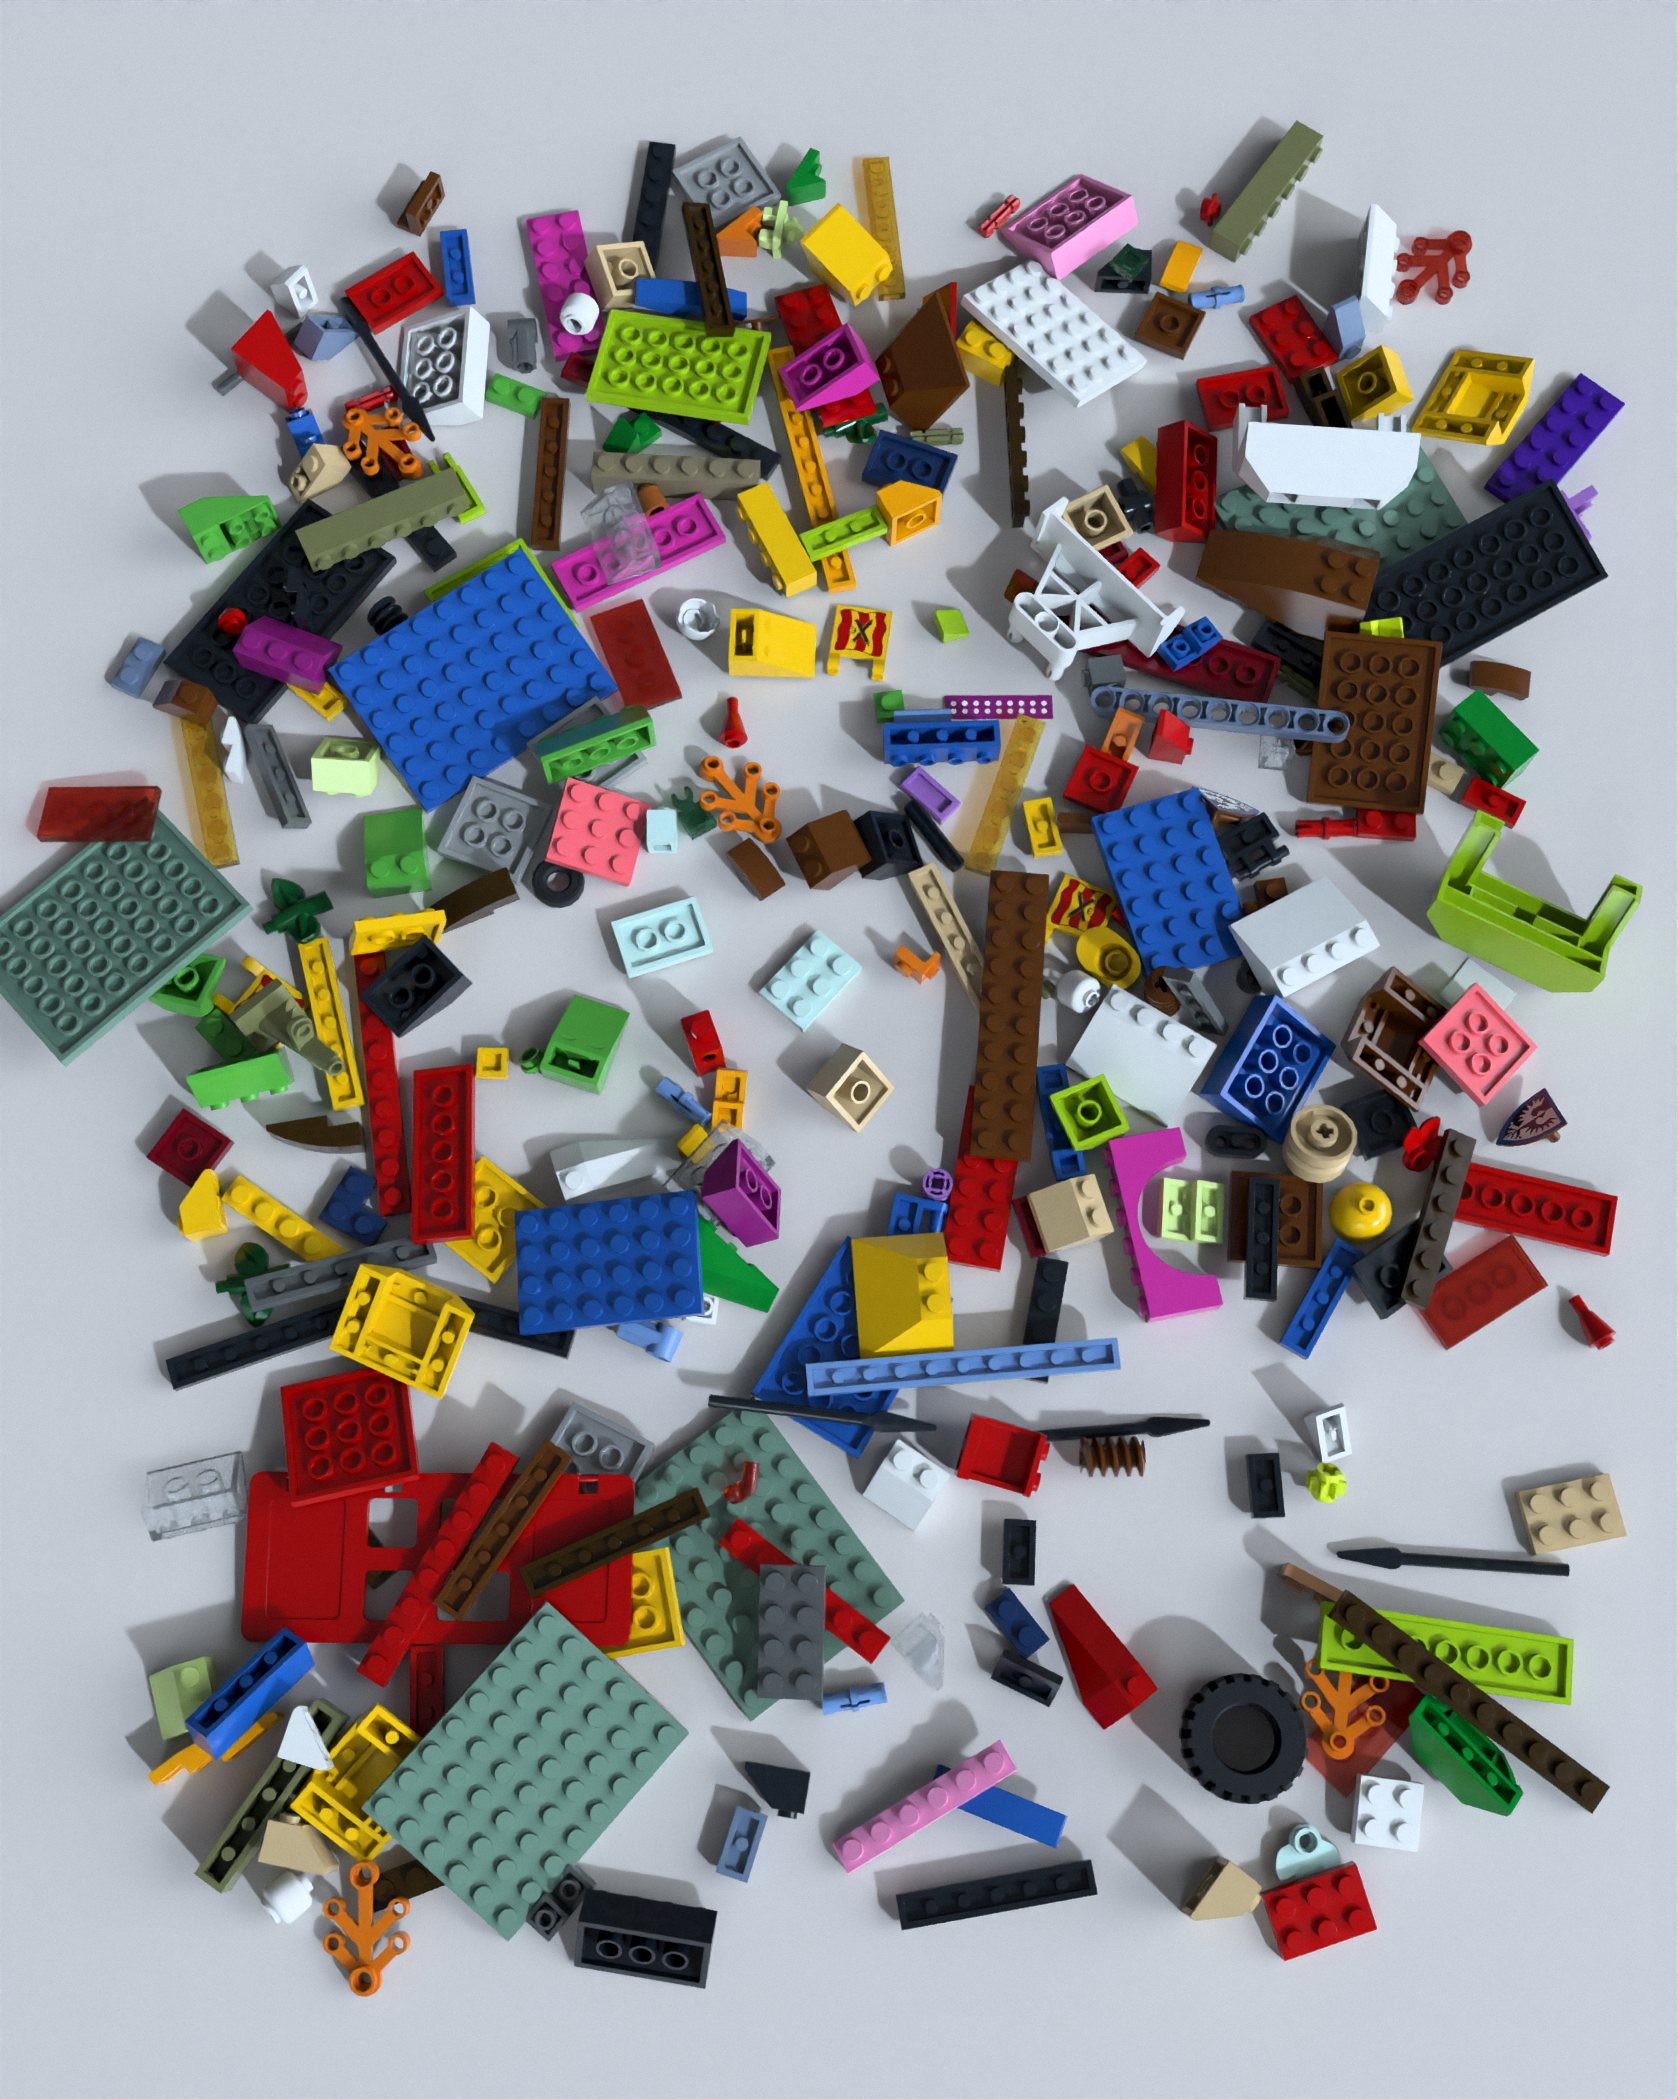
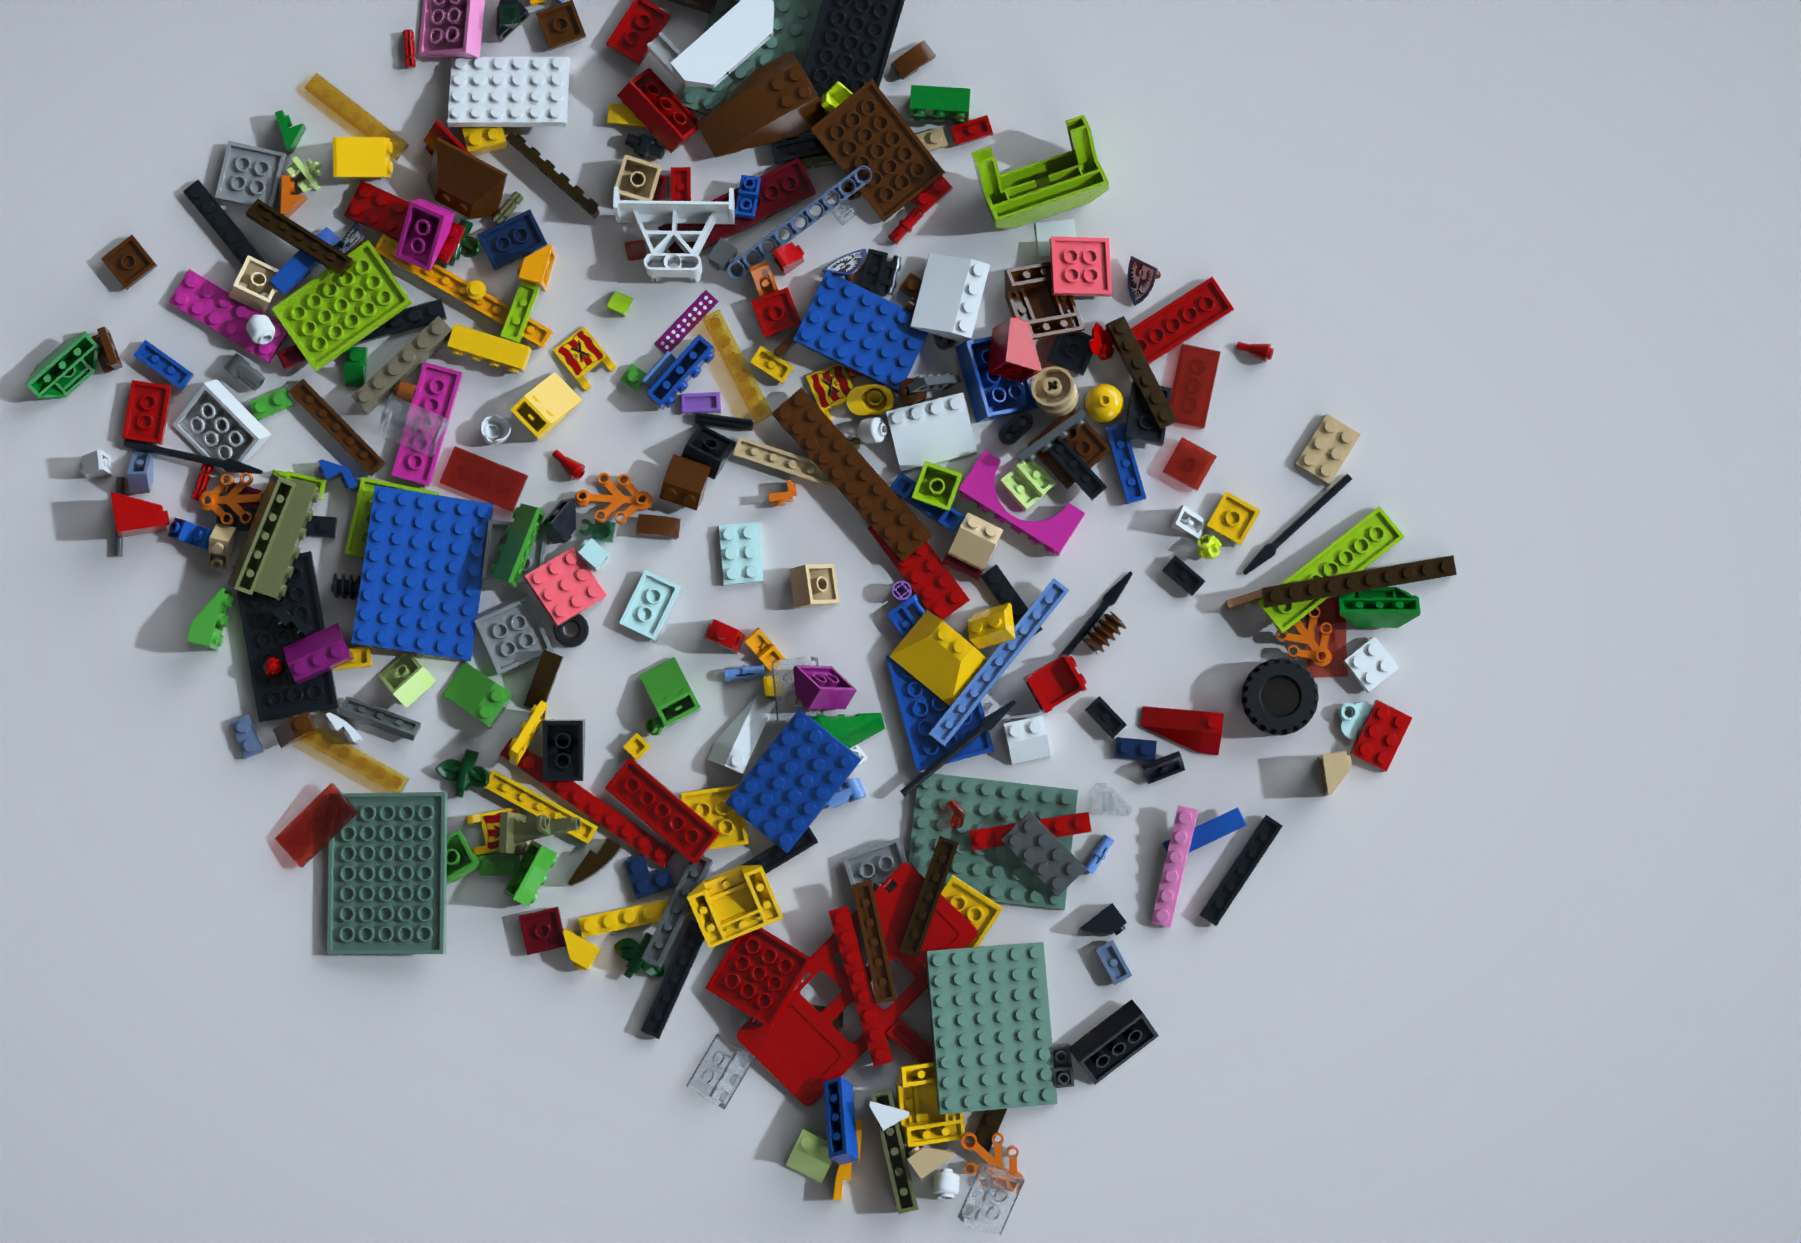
camera: 40 degrees left, 10 degrees up
(313, 1972) = (990, 1199): none -> clear slope
(362, 486) = (261, 534): none -> olive brick
(364, 184) = (65, 367): none -> green wedge
(501, 509) = (333, 471): none -> blue slope
(530, 154) = (129, 262): none -> reddish brown plate
(662, 767) = (561, 522): none -> black slope
(823, 474) = (476, 290): none -> yellow plate
(994, 1320) = (991, 626): none -> yellow slope
(1280, 1186) = (1059, 433): none -> dark grey plate
(1317, 1055) = (1013, 351): none -> slope
(1385, 1480) = (1233, 518): none -> yellow plate
(1393, 1371) = (1189, 464): none -> clear red plate

